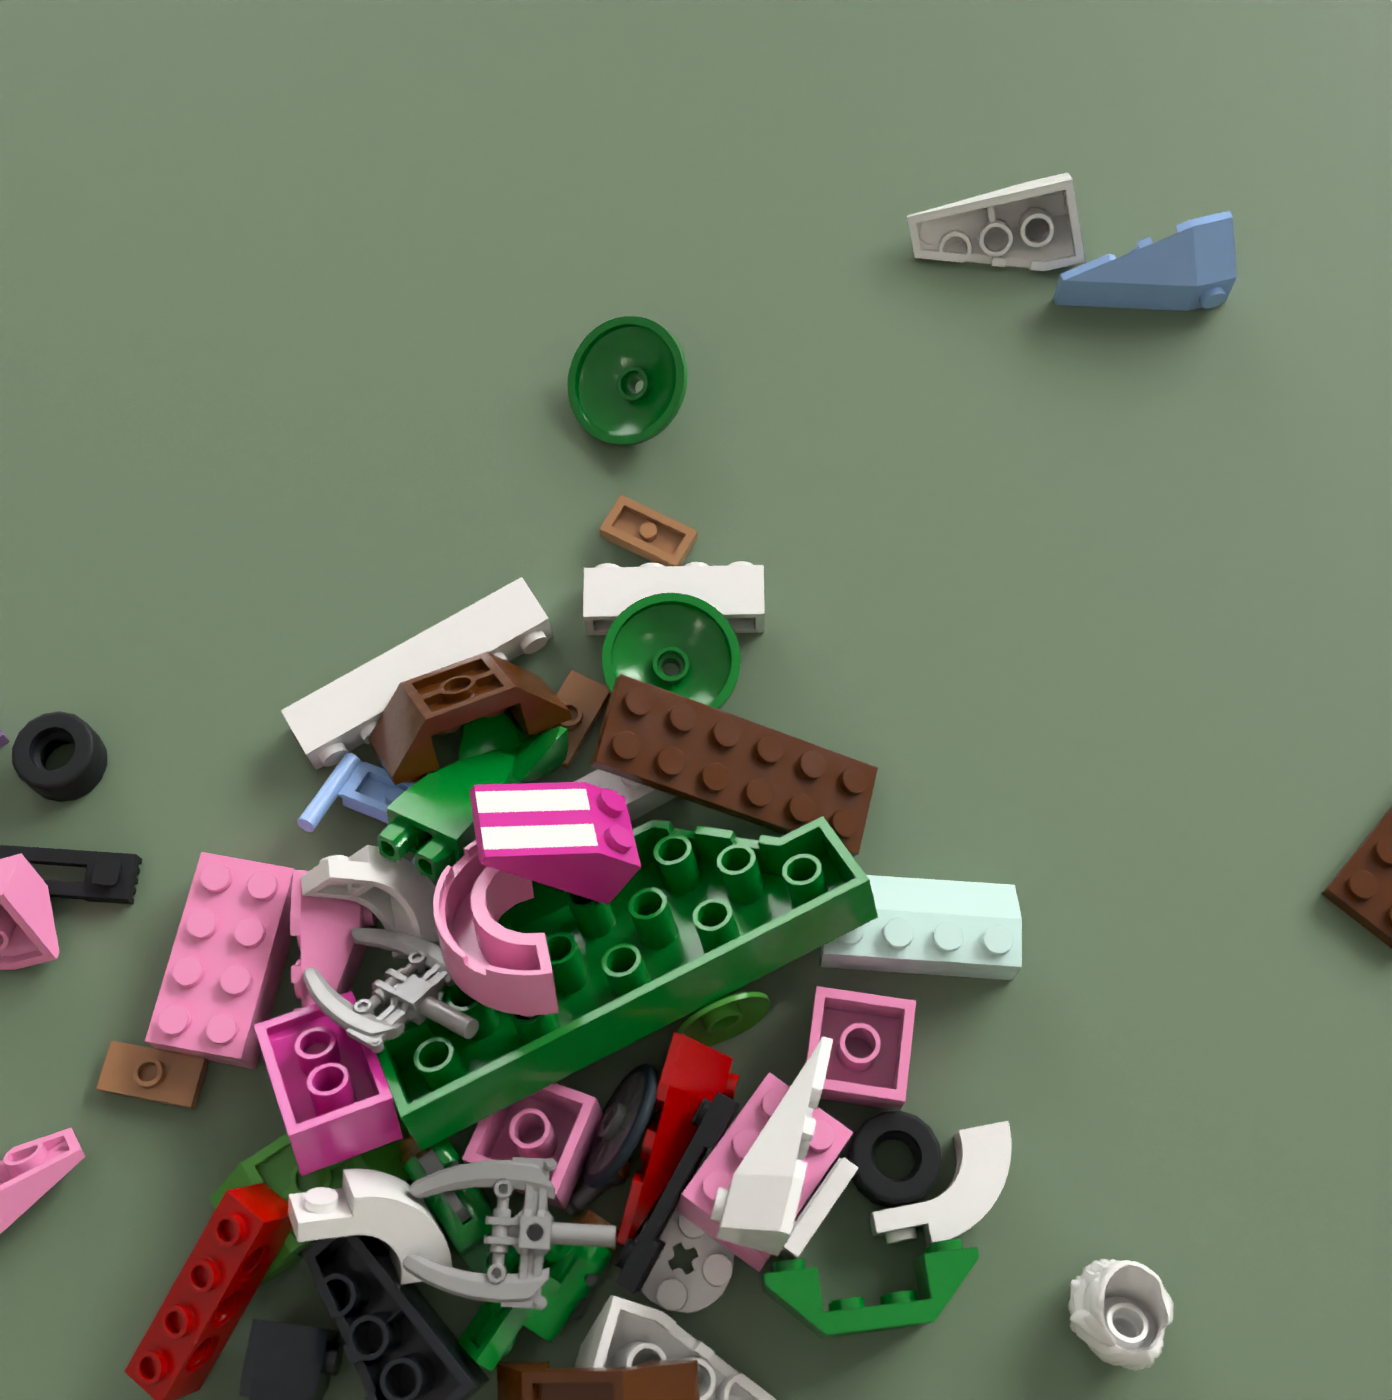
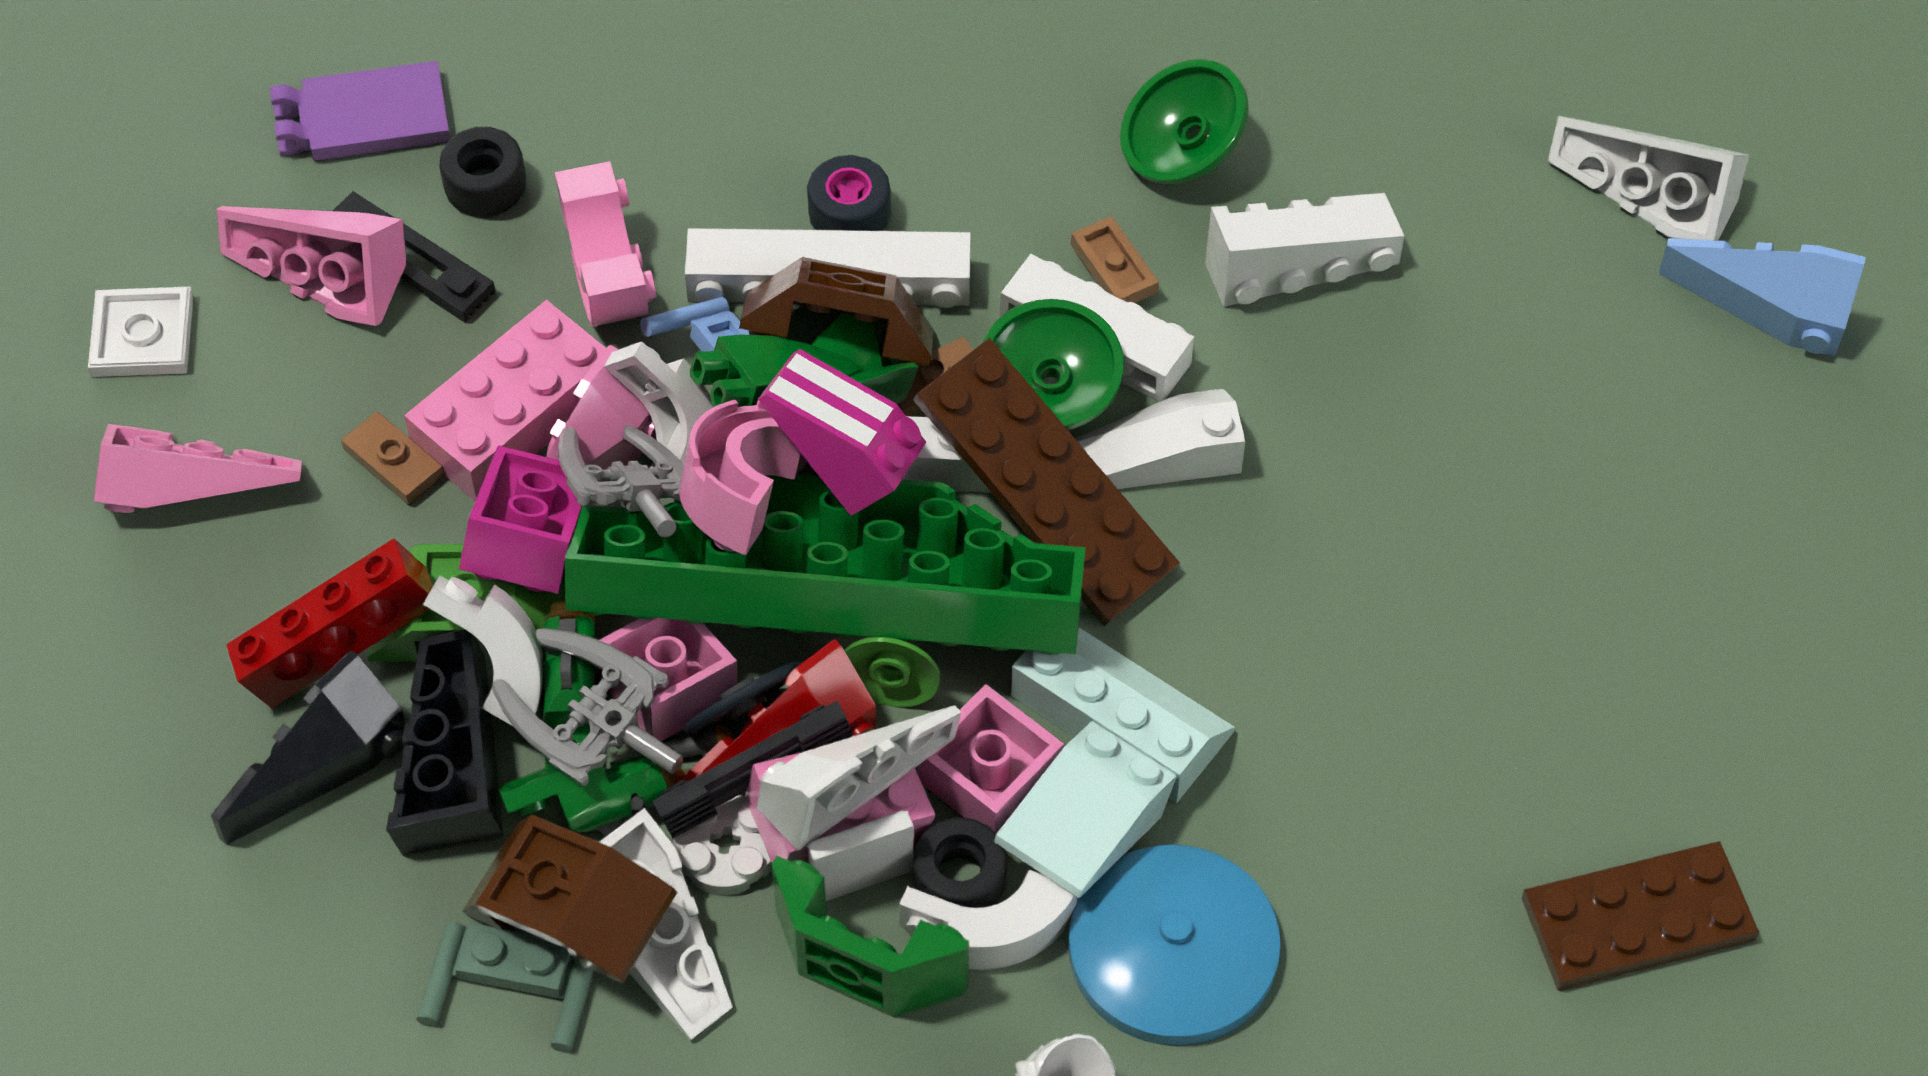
camera: 30 degrees right, 10 degrees down
(217, 774) = (603, 259): none -> bright pink brick
(388, 587) = (849, 195): none -> black wheel
(787, 437) = (1299, 246): none -> white wedge
(796, 661) = (1171, 441): none -> white wedge
(967, 1046) = (1087, 809): none -> light aqua slope
(1100, 1111) = (1174, 945): none -> dark azure dish

